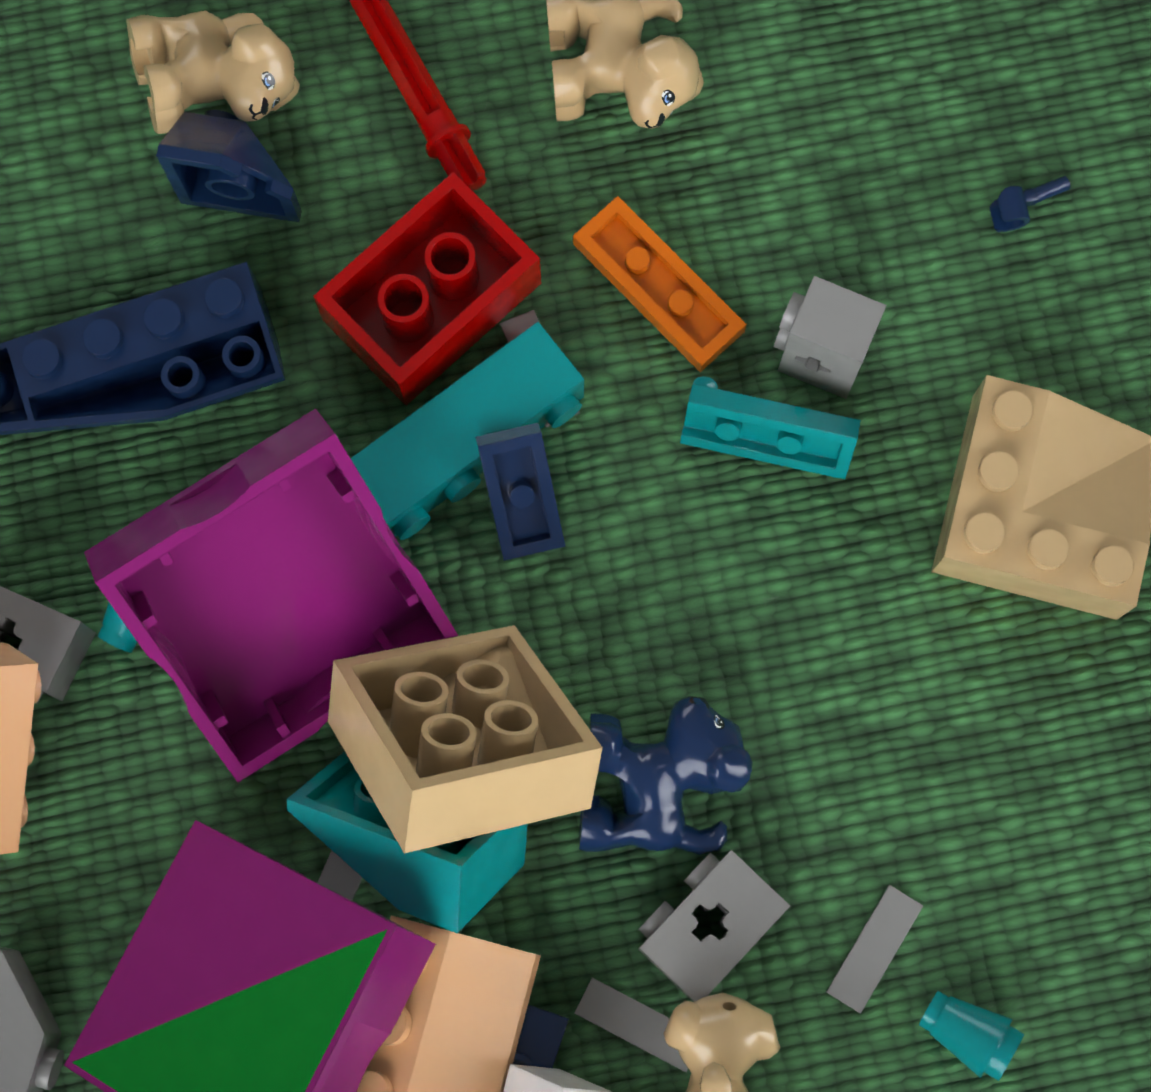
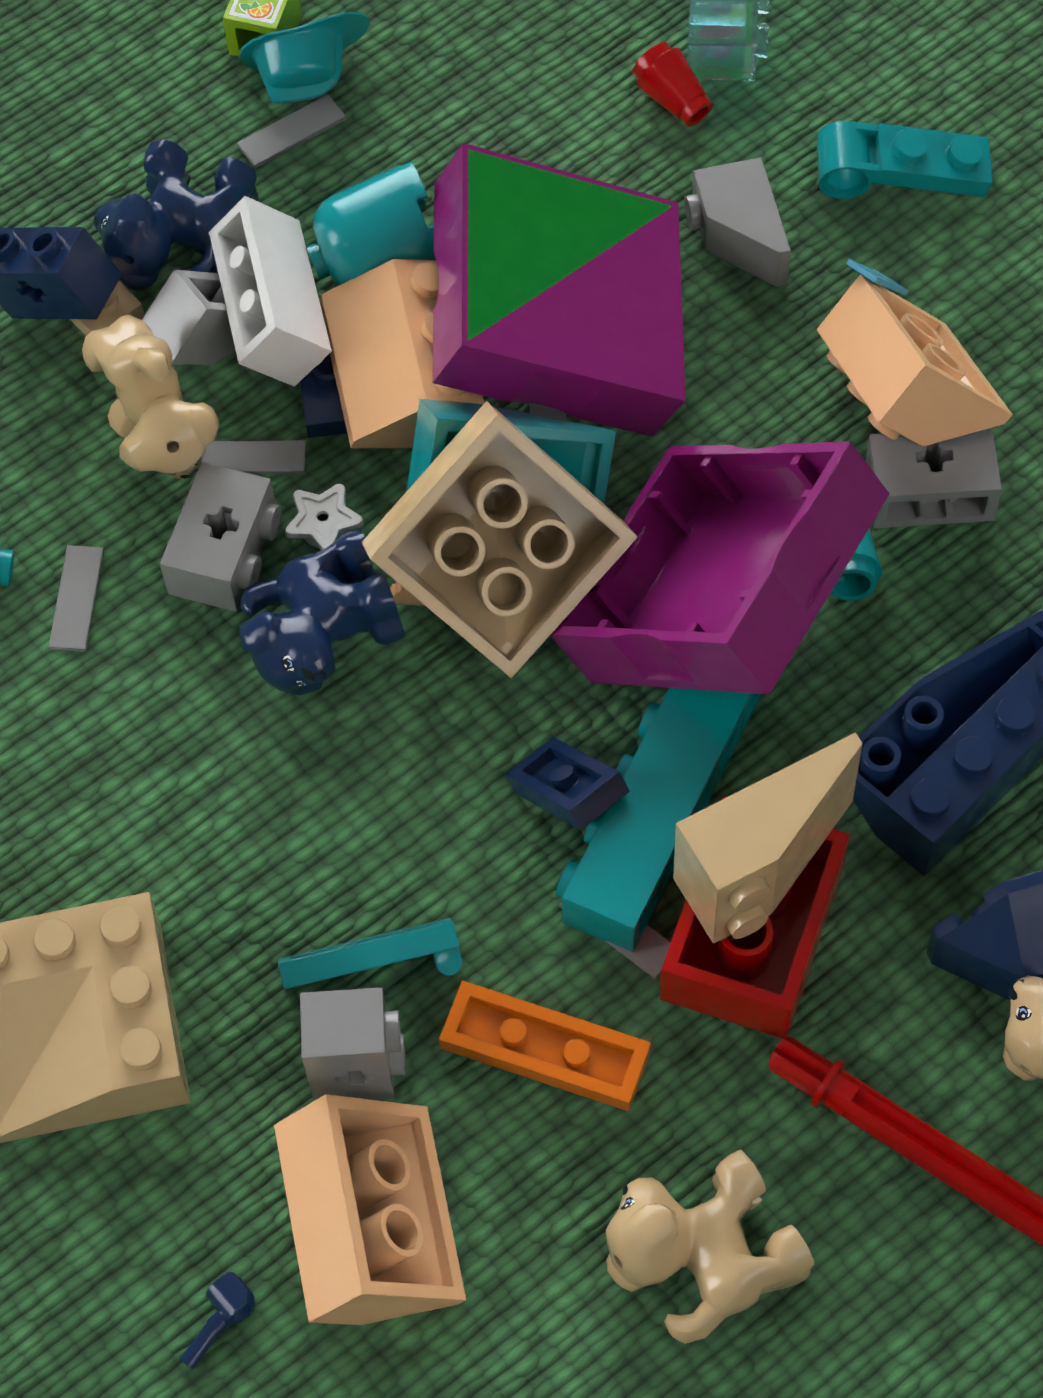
camera: 155 degrees right, 15 degrees down
(396, 279) = (754, 844): none -> tan slope
(587, 917) = (322, 533): none -> white plate
(874, 209) = (367, 1211): none -> light nougat slope

